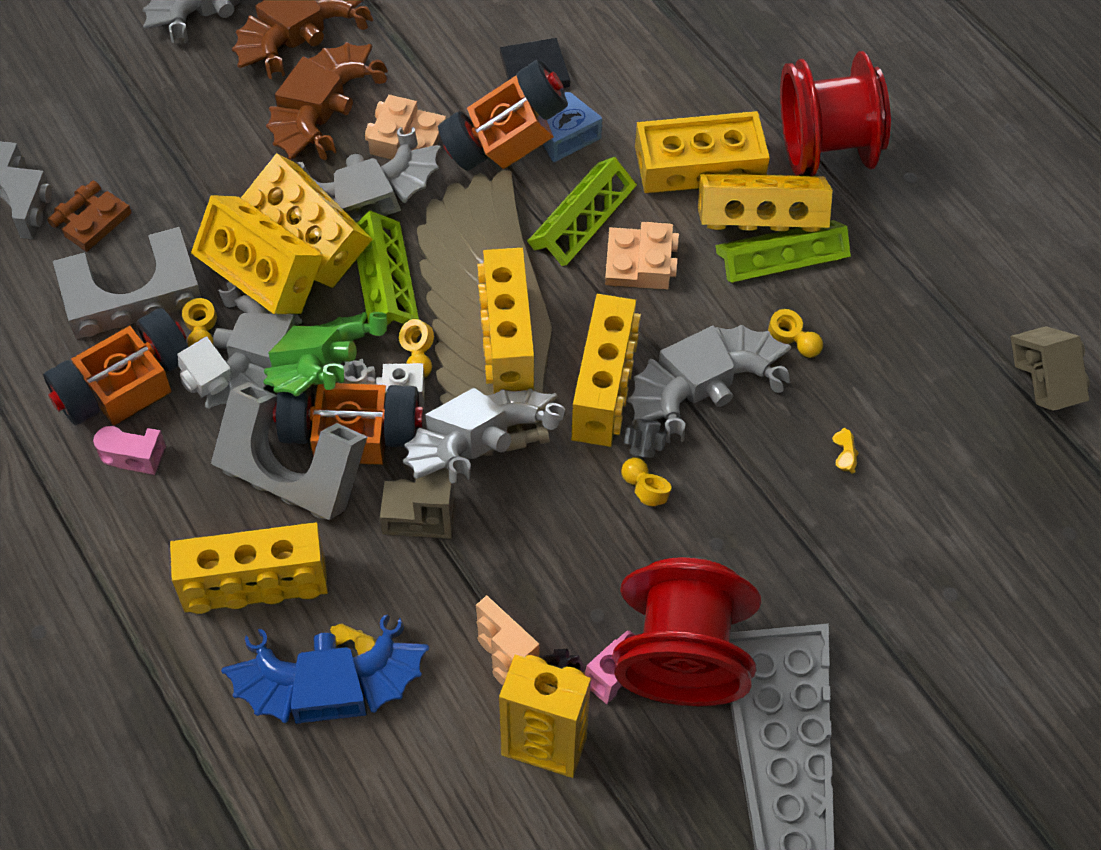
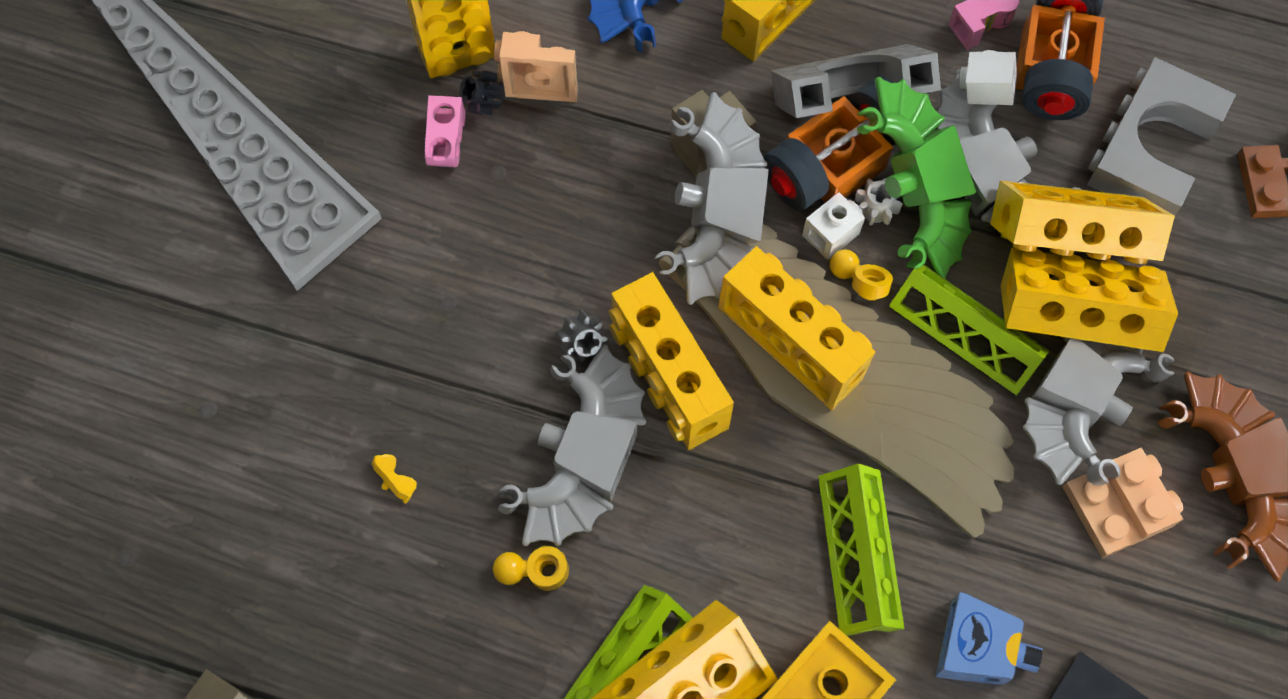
camera: 140 degrees right, 10 degrees up
(194, 309) = (1062, 152): yellow plate -> none
(344, 633) = (673, 11): yellow piece -> none
(507, 120) = (1028, 558): brick -> none
(642, 256) = (756, 542): light nougat plate -> none
(649, 488) = (566, 306): yellow plate -> none
(687, 633) = (380, 136): red wheel -> none

